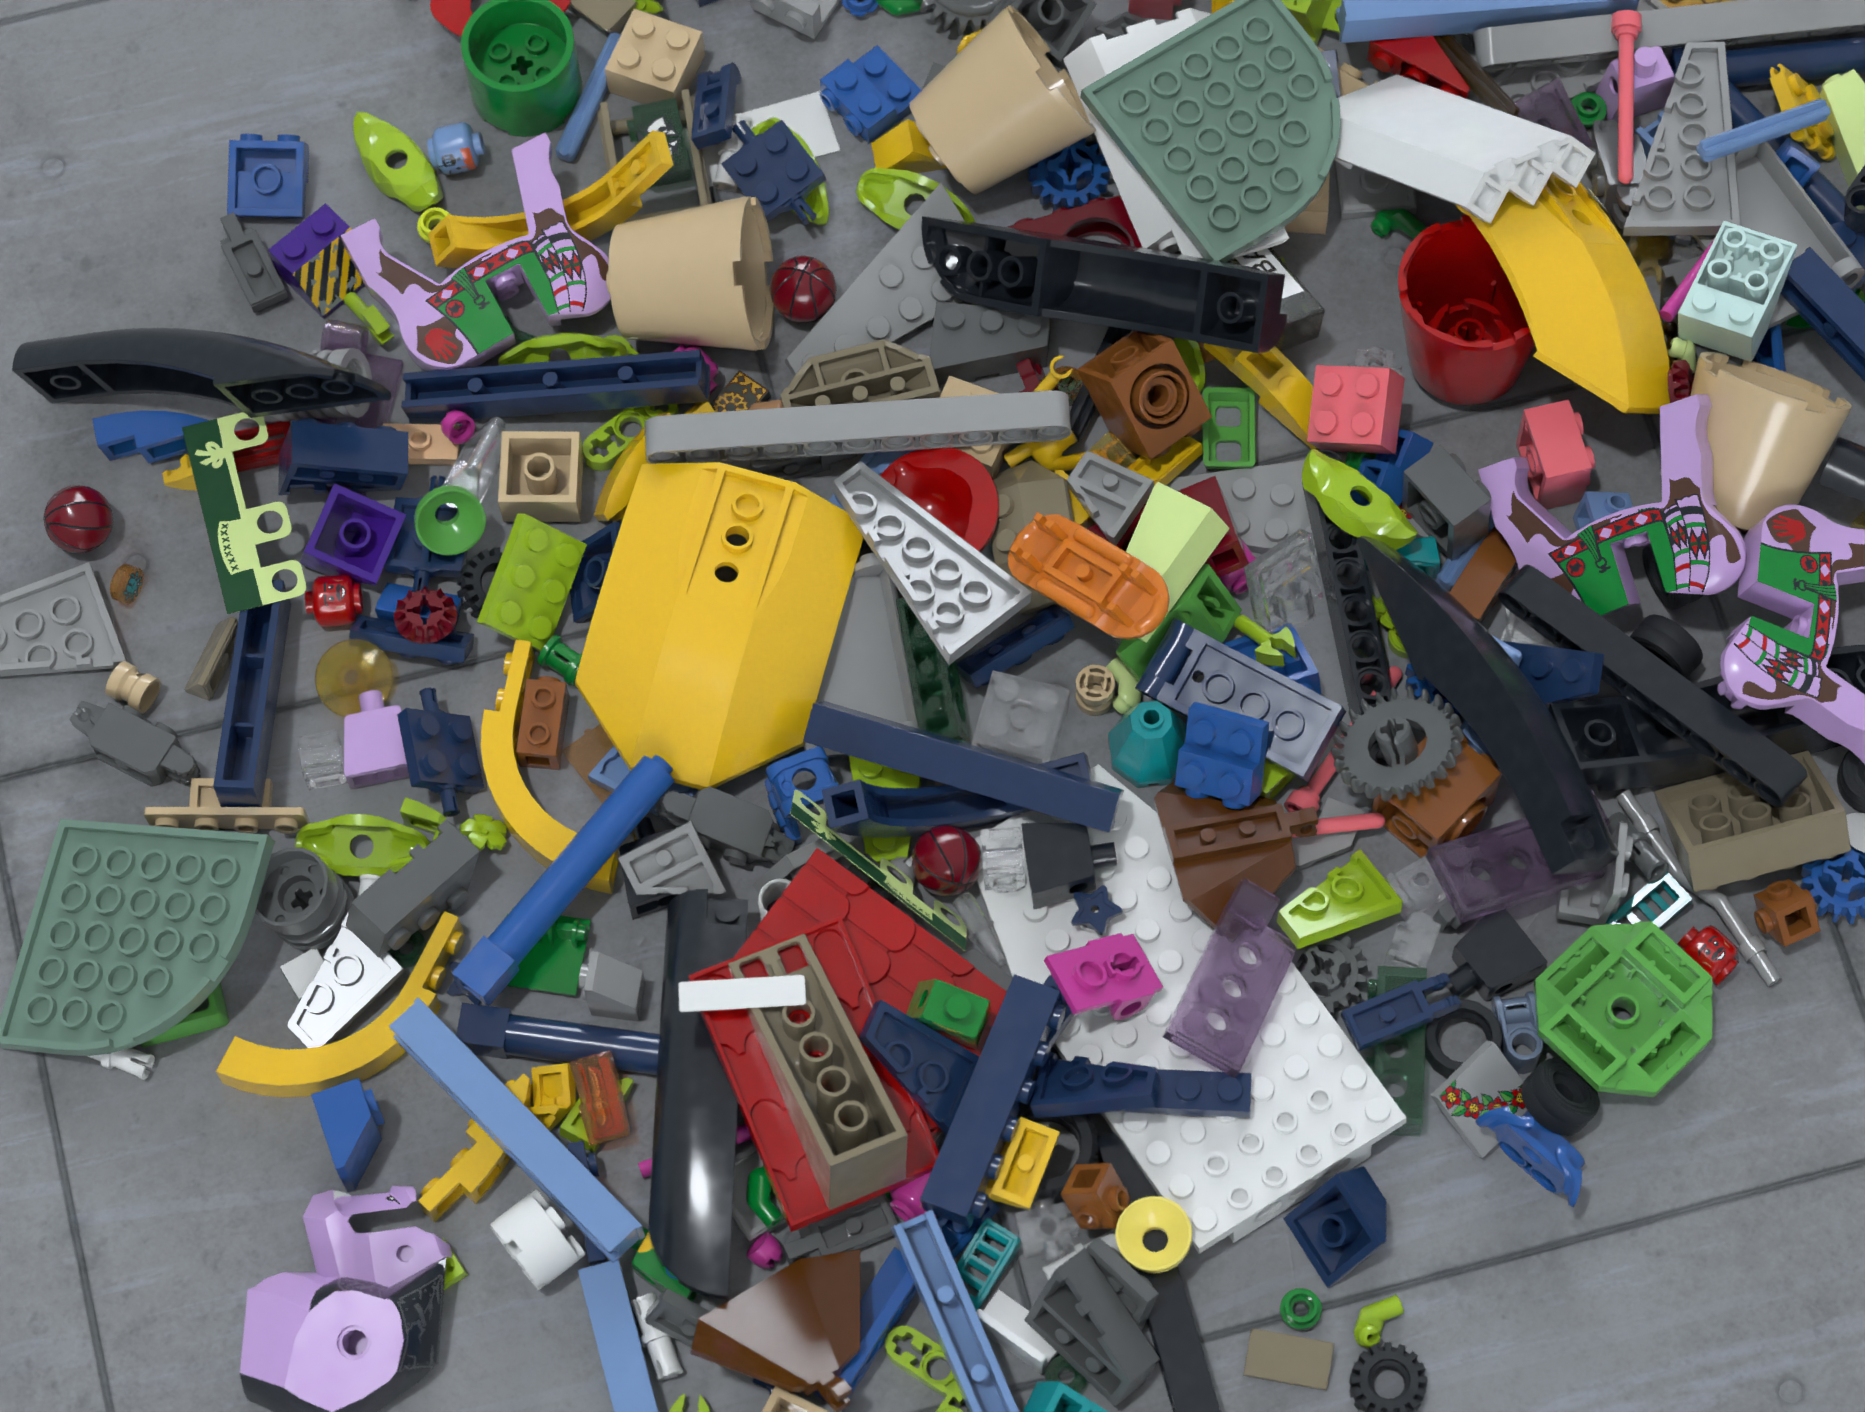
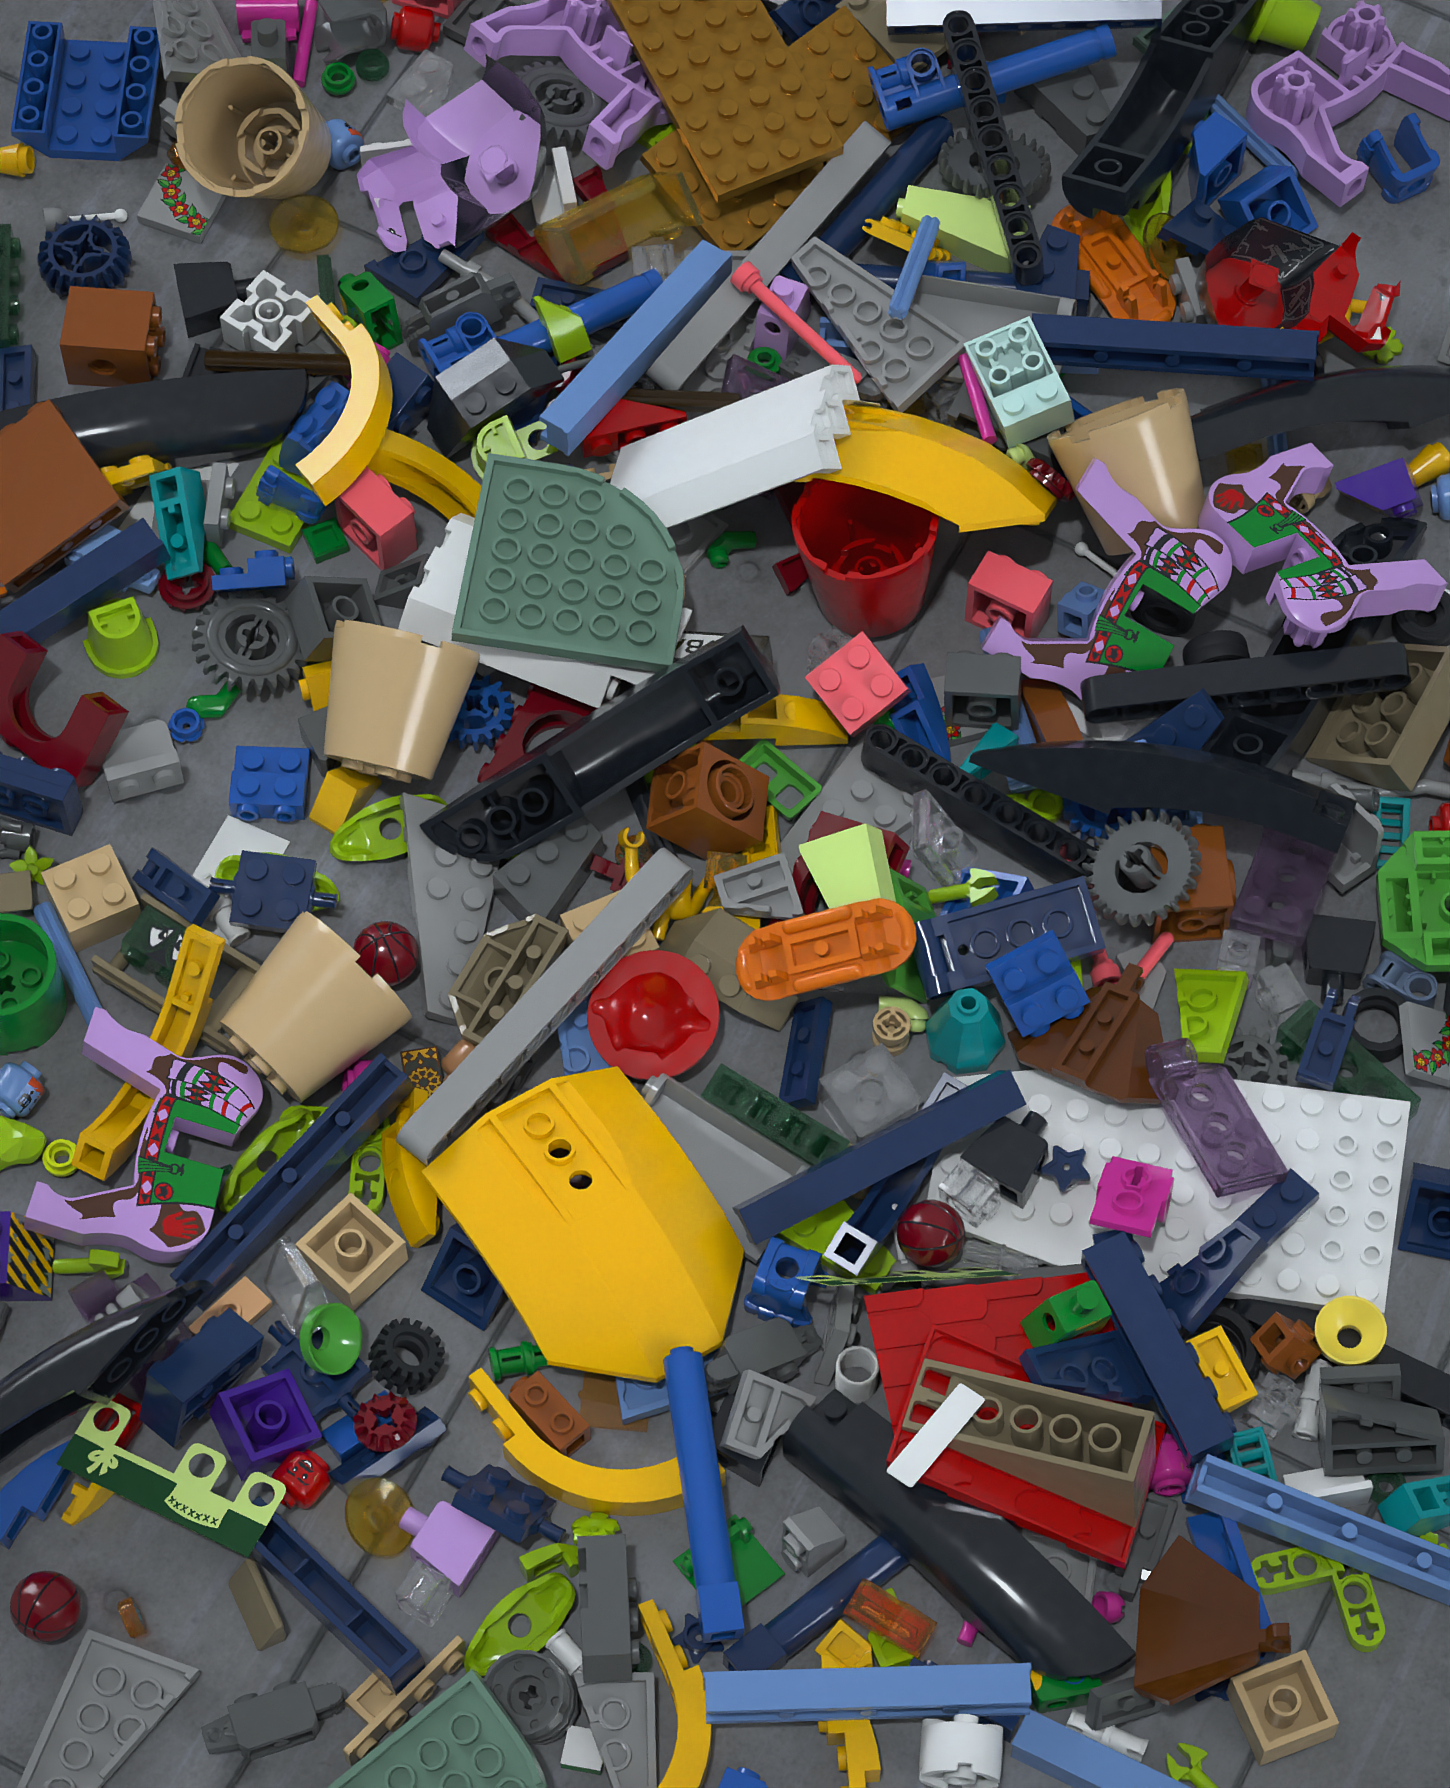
camera: 50 degrees left, 5 degrees down
(133, 687) = (224, 1683): tan wheel -> none
(454, 435) = (250, 1275): dark pink hinge -> none
(531, 582) = (435, 1326): lime plate -> none
(758, 1198) = (1077, 1577): green arm -> none
(940, 575) = (719, 1046): light grey wing -> none
(1331, 485) = (907, 744): lime piece -> none

